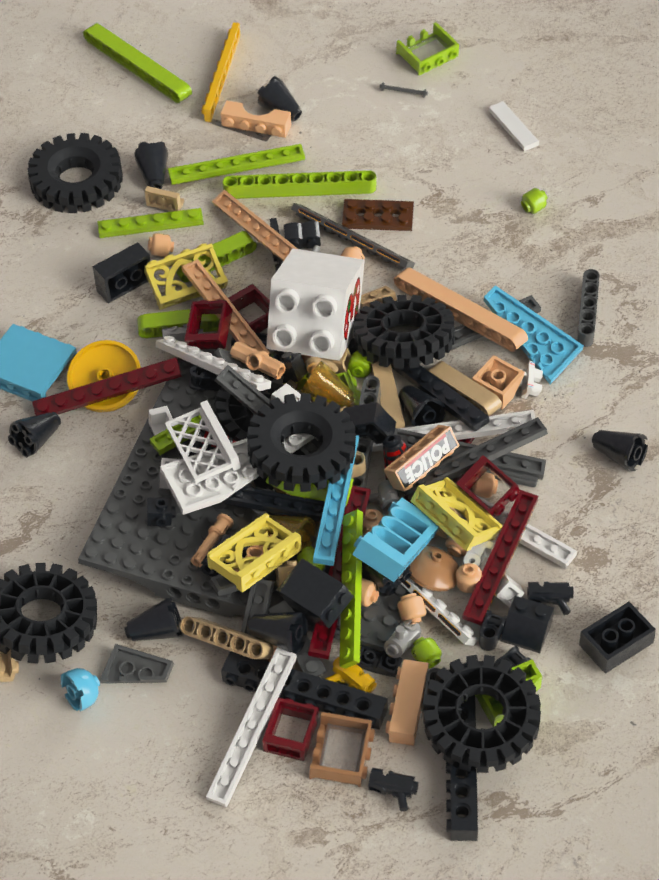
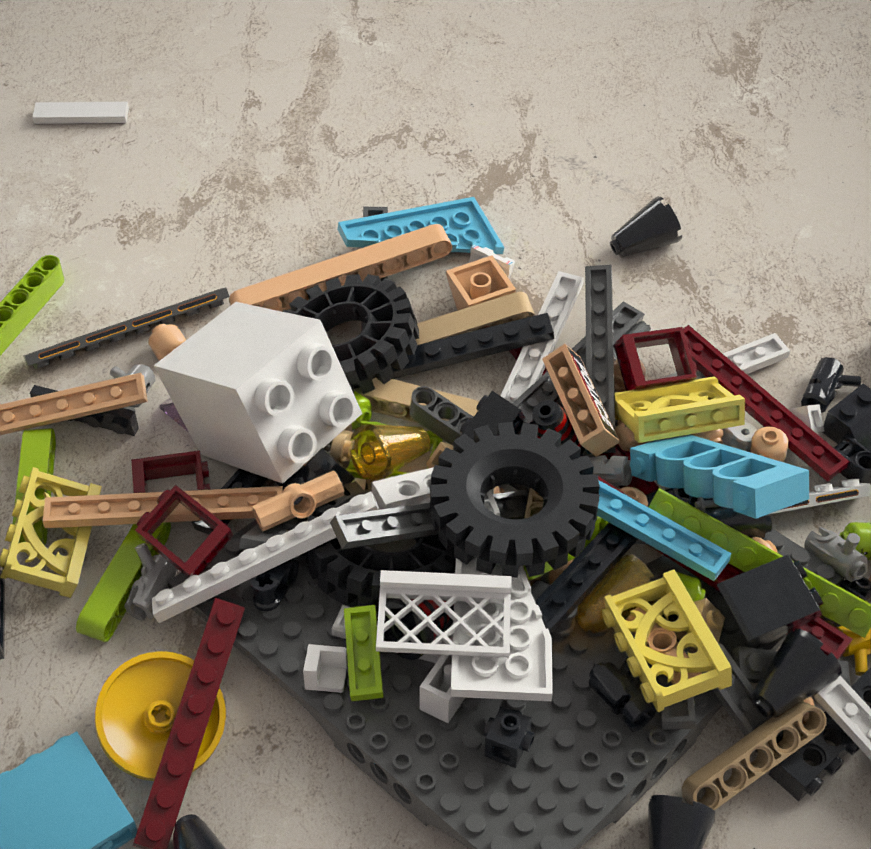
camera: 65 degrees left, 0 degrees up
(214, 532) = (577, 684): light nougat pin -> none
(303, 234) = (81, 369): black brick -> none
(384, 207) = (111, 302): reddish brown plate -> none
(411, 608) = (793, 524): light nougat head -> none
(421, 407) = (467, 377): black cone -> none
(534, 200) = (218, 143): lime head -> none
(588, 307) = (417, 169): dark grey beam -> none

